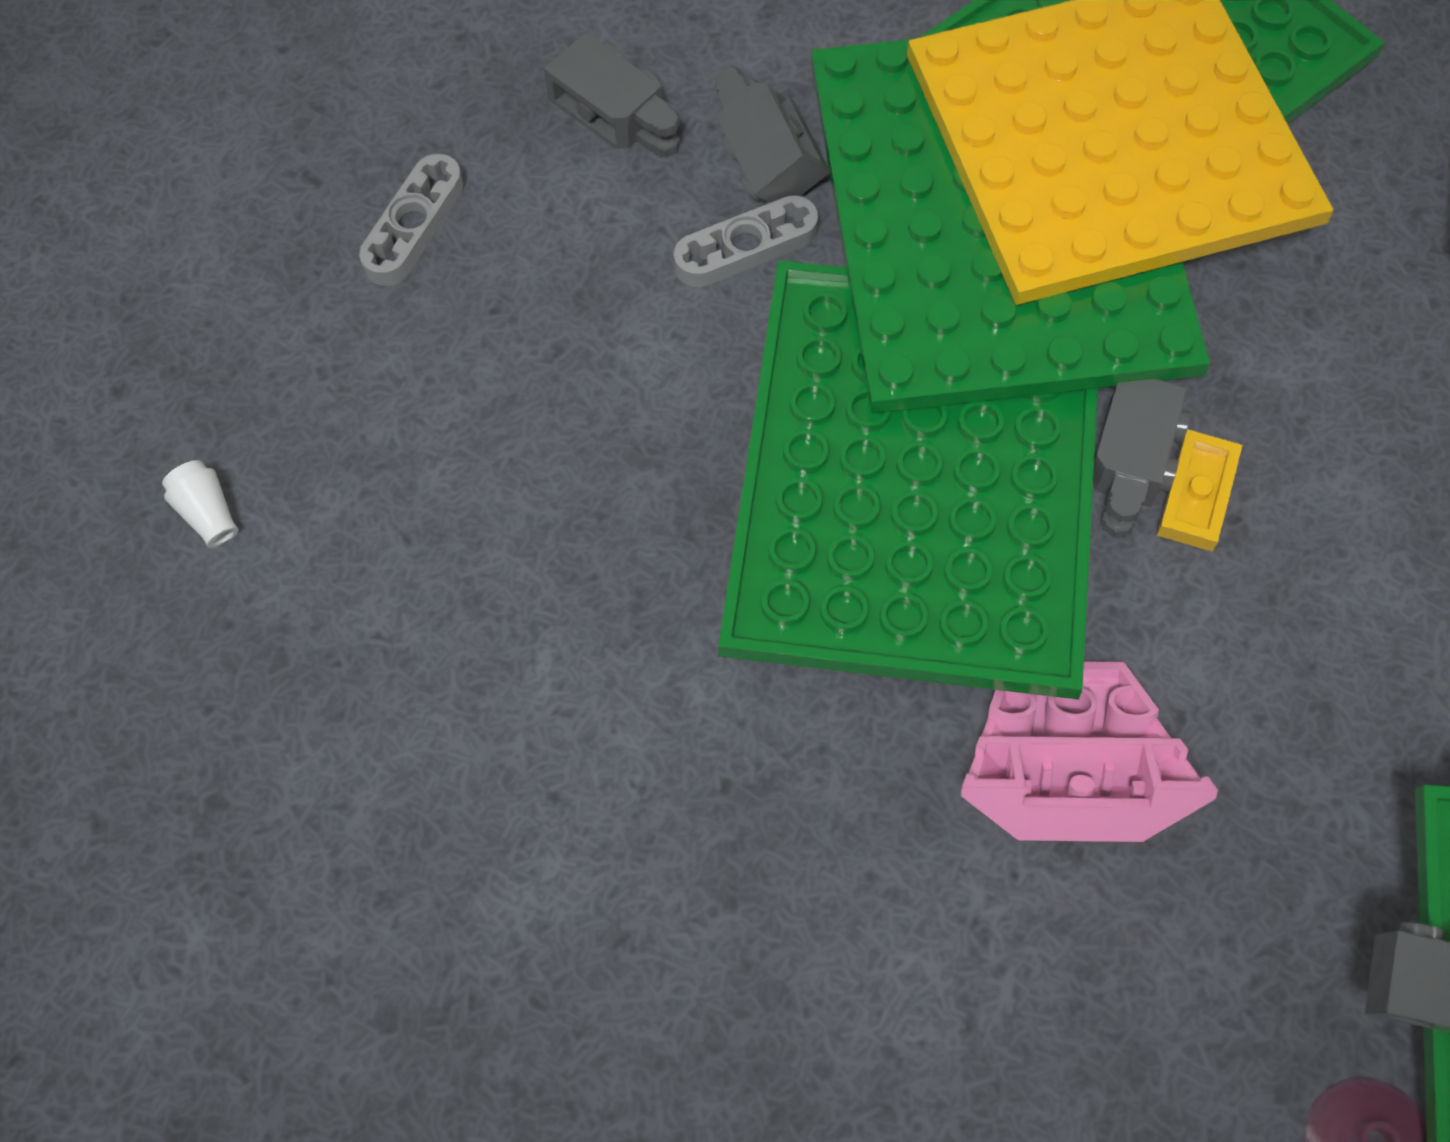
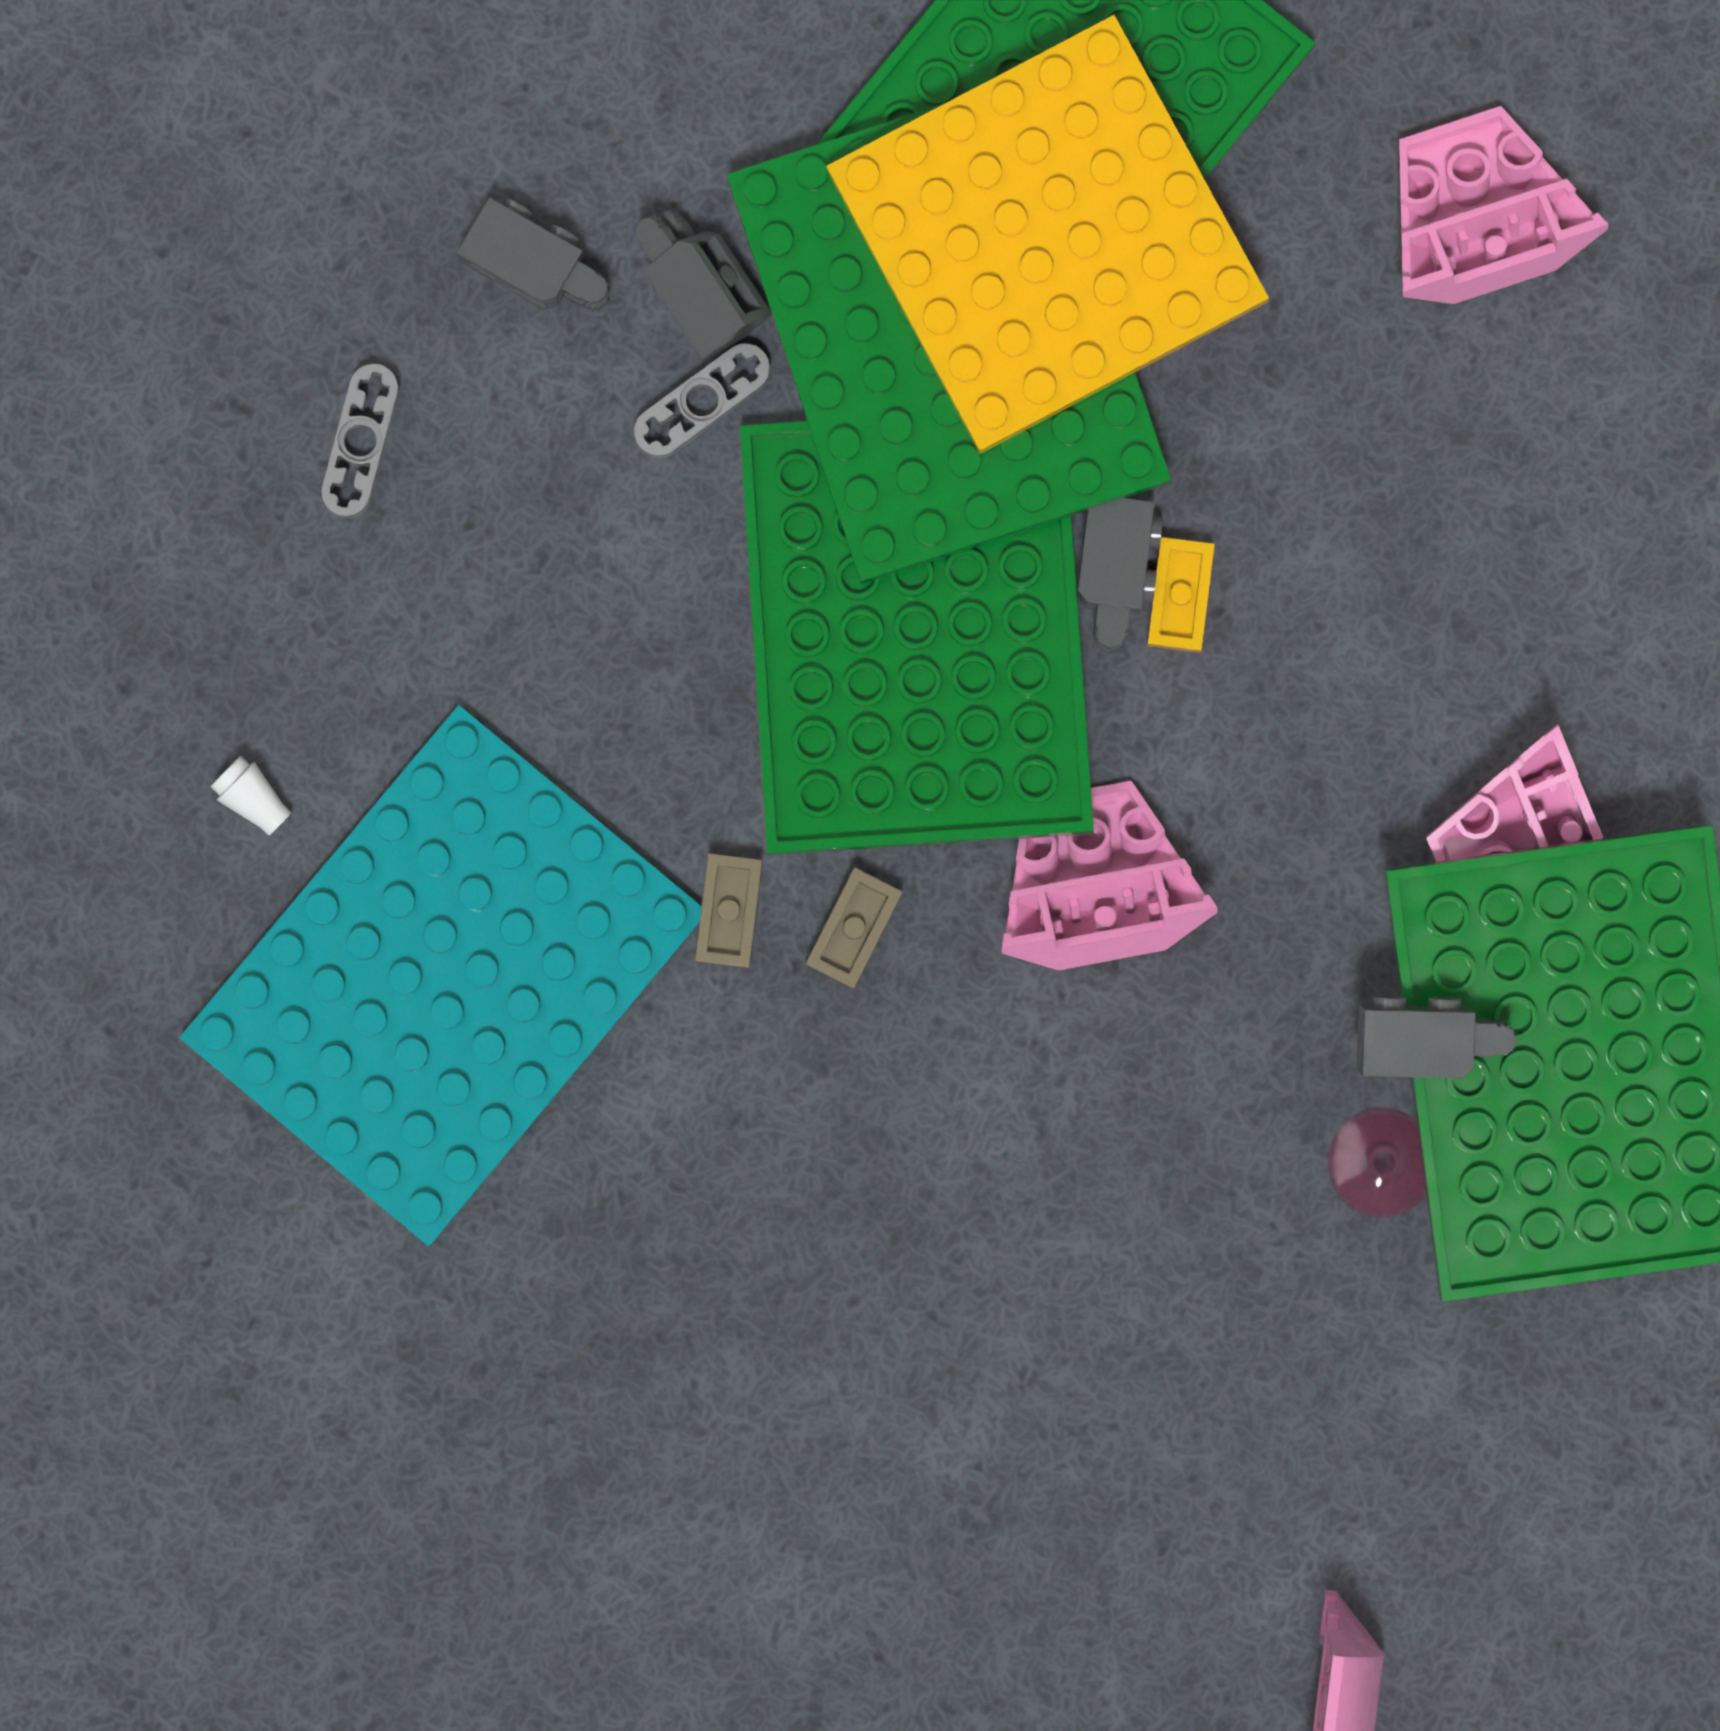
camera: 15 degrees left, 20 degrees up
(340, 730) = (443, 975): none -> teal plate
(663, 710) = (728, 911): none -> dark tan plate
(796, 754) = (854, 928): none -> dark tan plate

